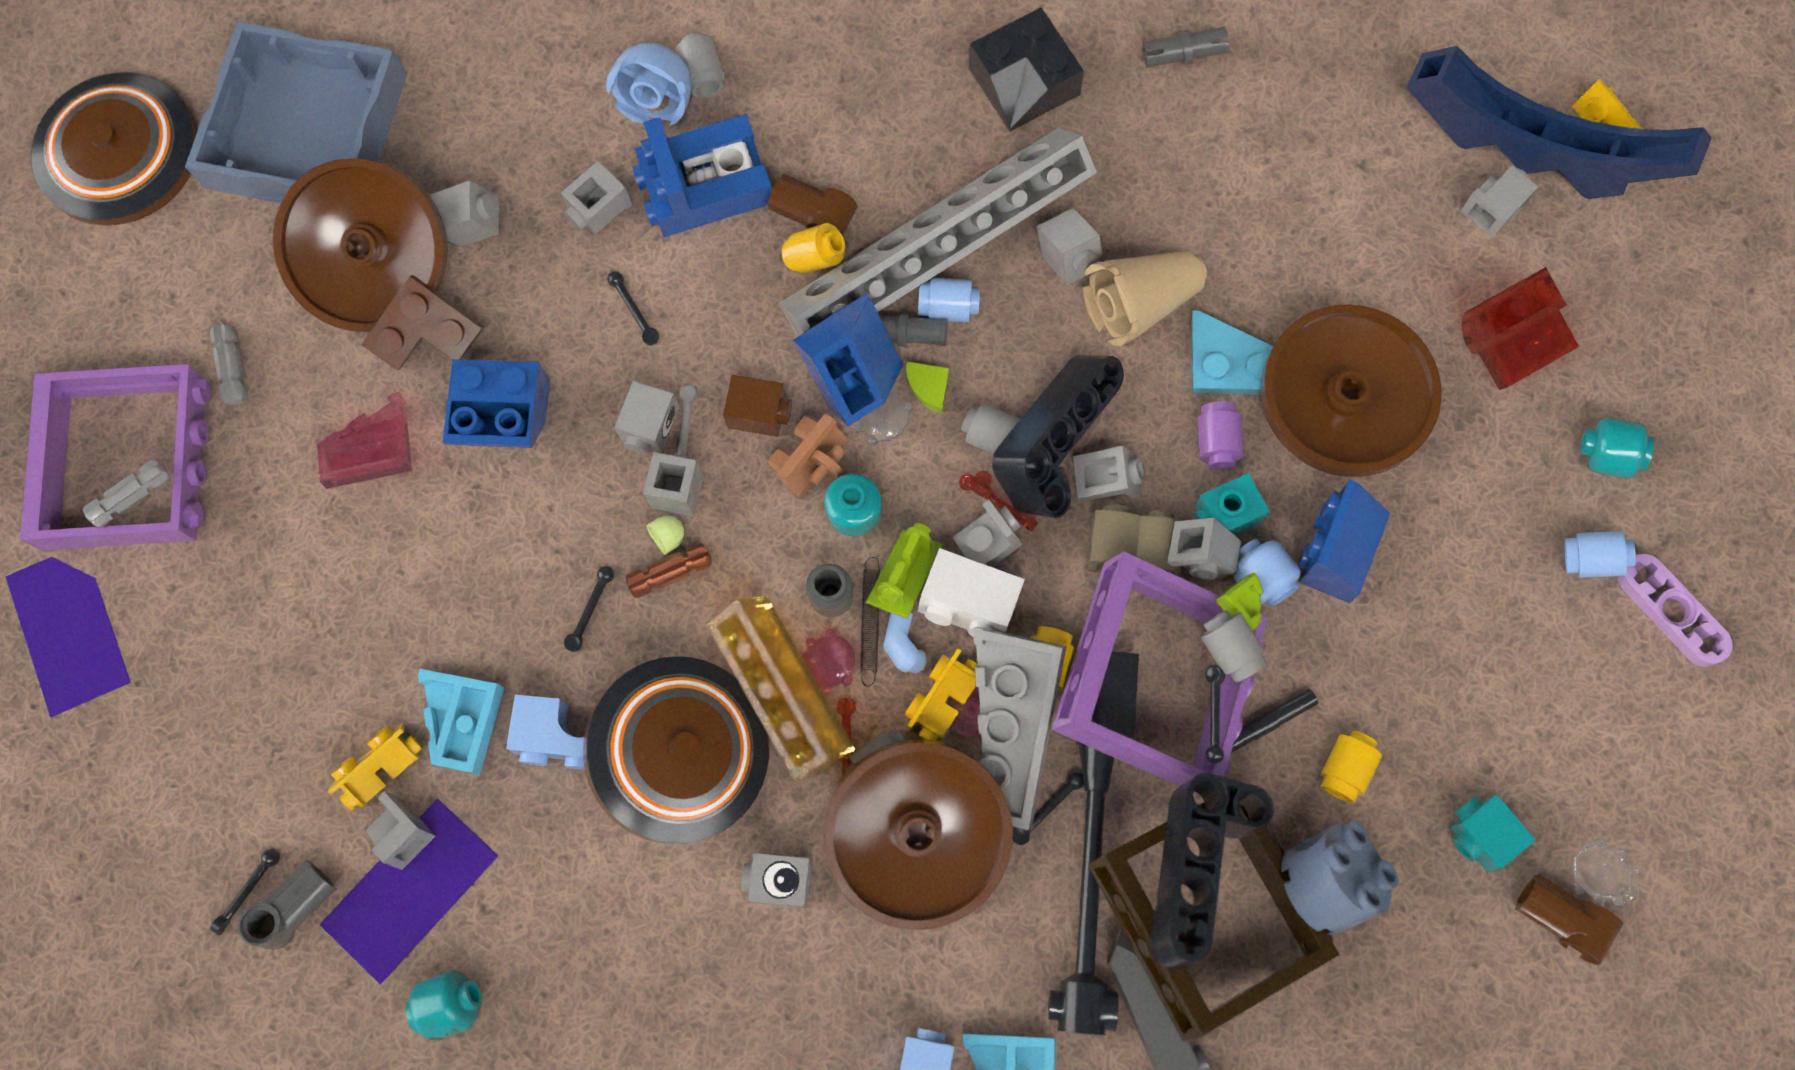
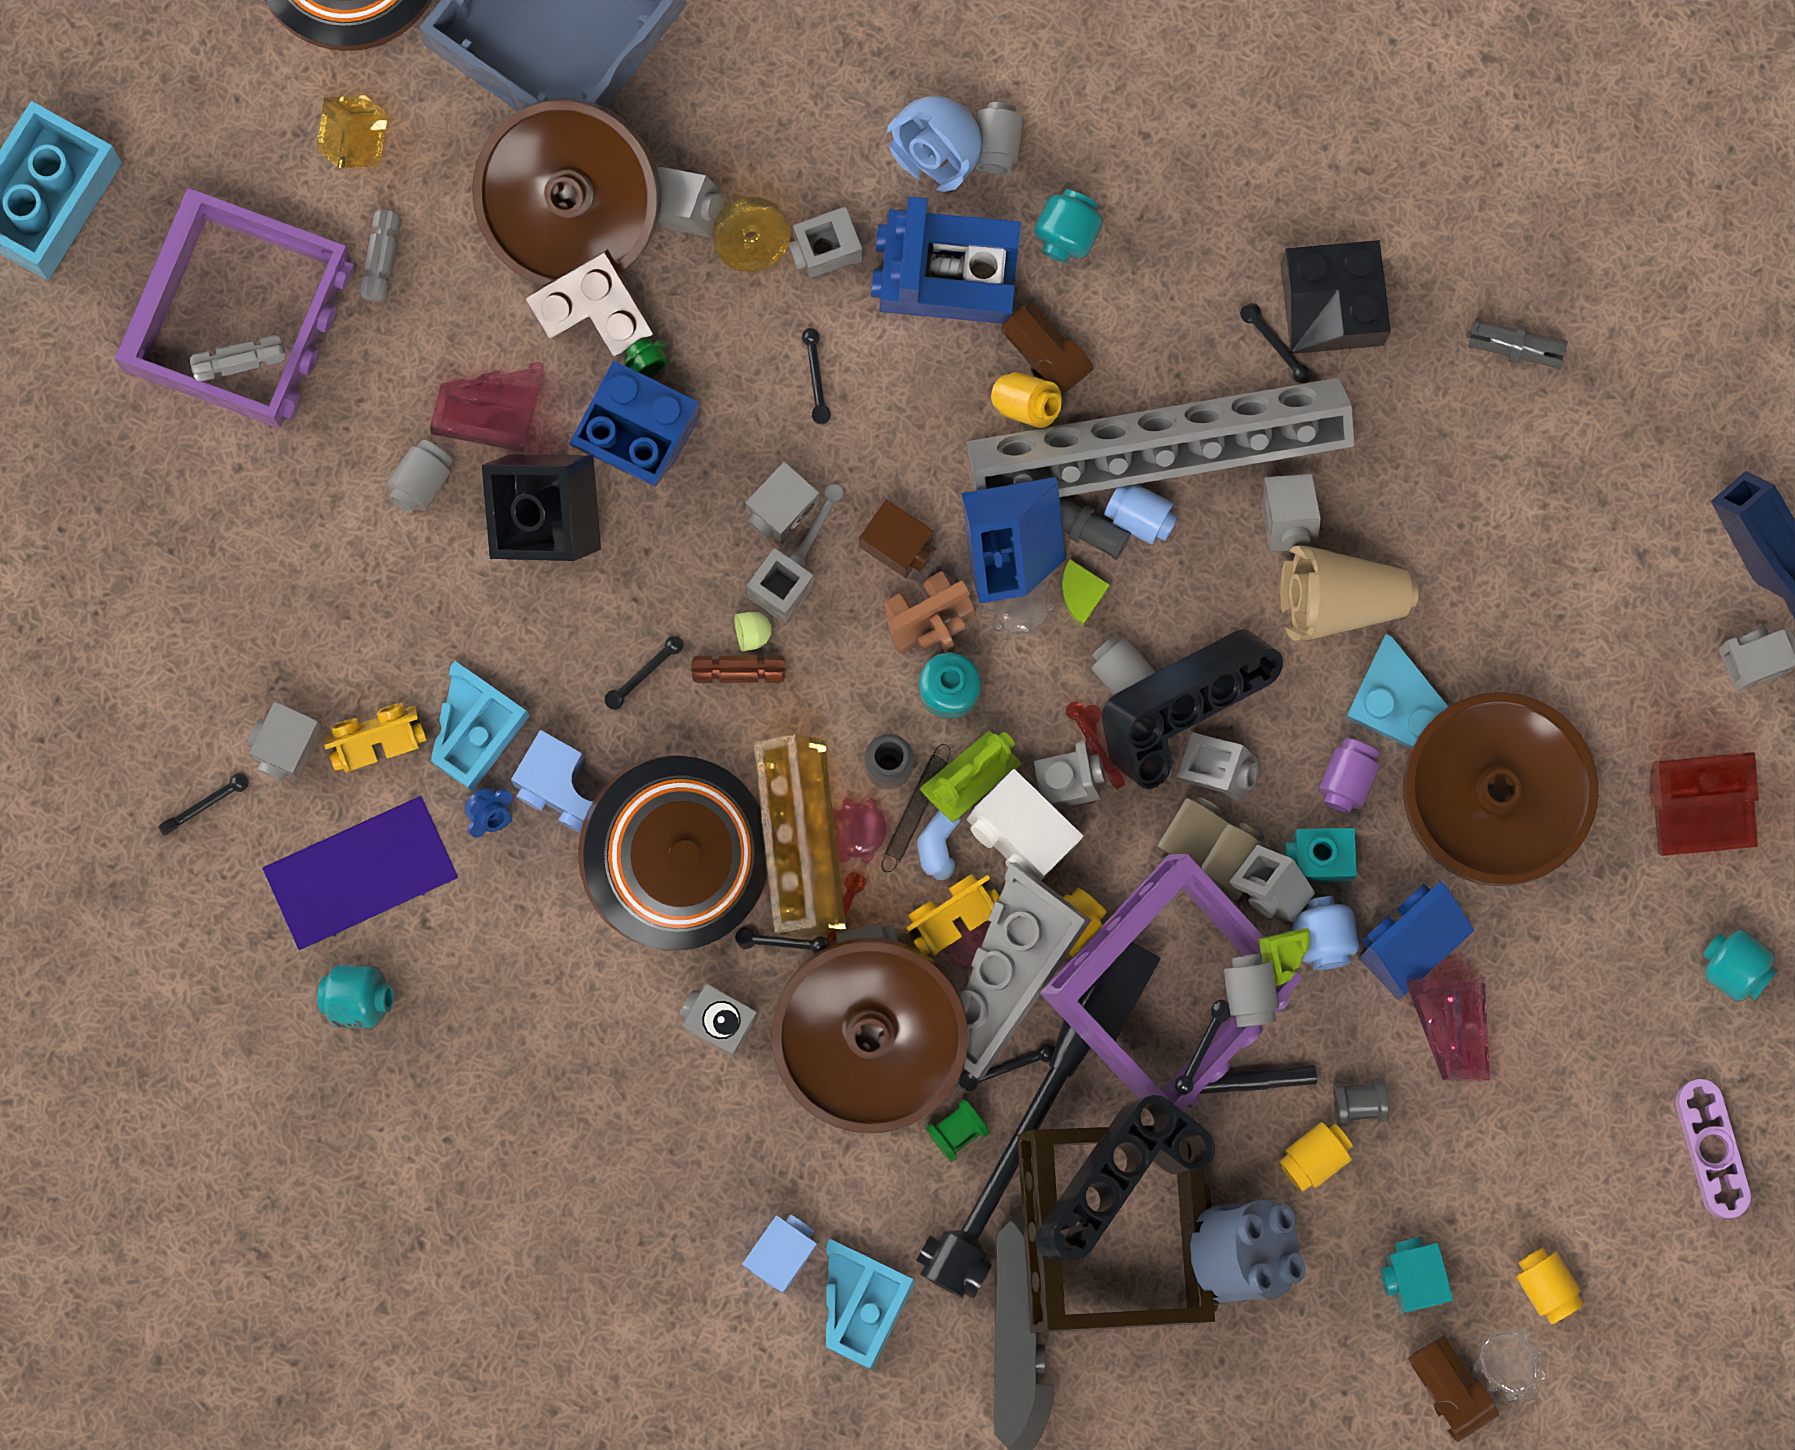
camera: 15 degrees right, 5 degrees up
(67, 634) = (118, 468): dark purple window -> none
(165, 276) = (351, 131): none -> clear yellow panel
(290, 906) = (247, 837): dark grey piece -> none
(294, 805) = (283, 742): none -> light grey brick
(328, 528) = (419, 477): none -> light grey brick
(398, 833) = (372, 813): light grey panel -> none
(441, 506) = (541, 507): none -> black slope
(484, 347) = (646, 357): none -> green plate
(491, 784) = (488, 811): none -> blue plate
(518, 201) = (744, 217): none -> clear yellow piece
(773, 797) = (747, 939): none -> black hinge
(787, 105) = (1068, 226): none -> teal head
(964, 114) = (1251, 314): none -> black hinge
(1031, 884) = (957, 1130): none -> green bush
(1364, 702) = (1361, 1102): none -> dark grey bush
(1412, 602) = (1455, 1026): none -> clear pink wing
(1599, 554) = (1663, 1061): light blue brick -> none
(1604, 788) = (1549, 1285): none -> yellow brick

